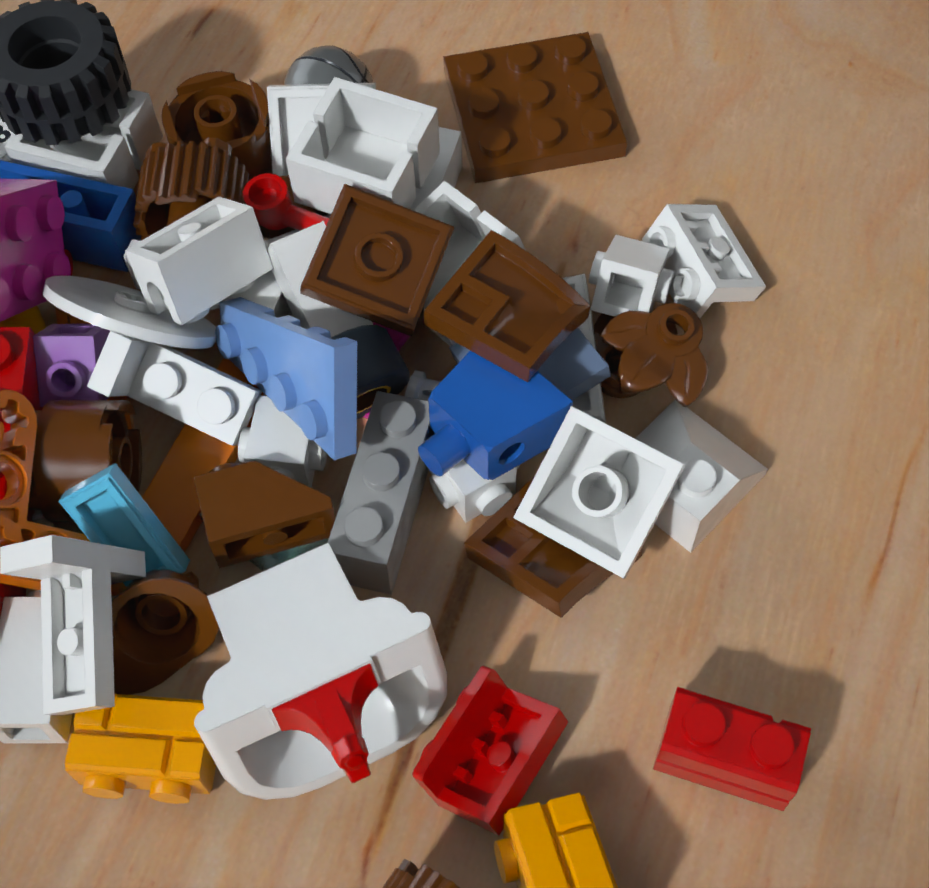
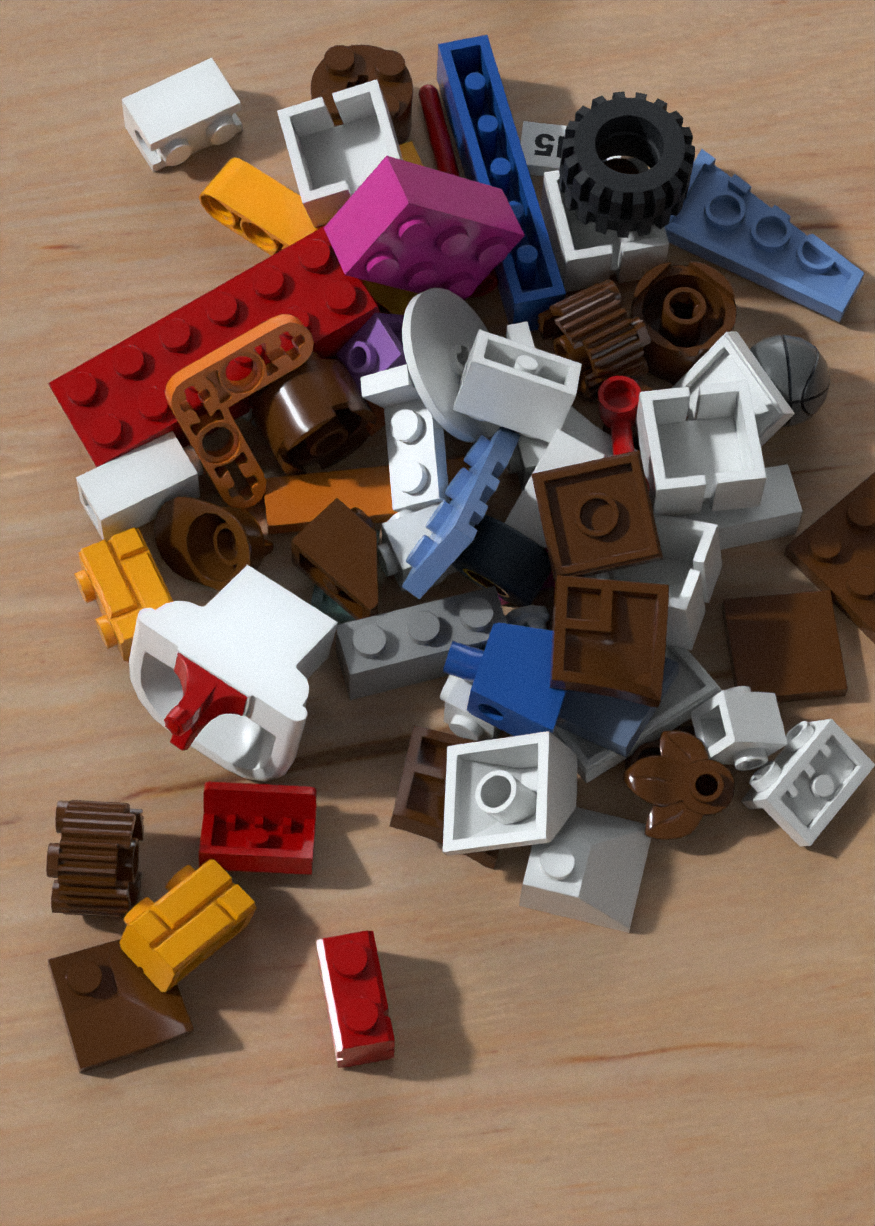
camera: 55 degrees right, 5 degrees up
(74, 615) = (178, 487): white bracket -> none
(116, 515) = (271, 475): medium azure tile -> none
(225, 44) = (759, 243): none -> medium blue wing
(567, 217) = (785, 645): none -> reddish brown tile

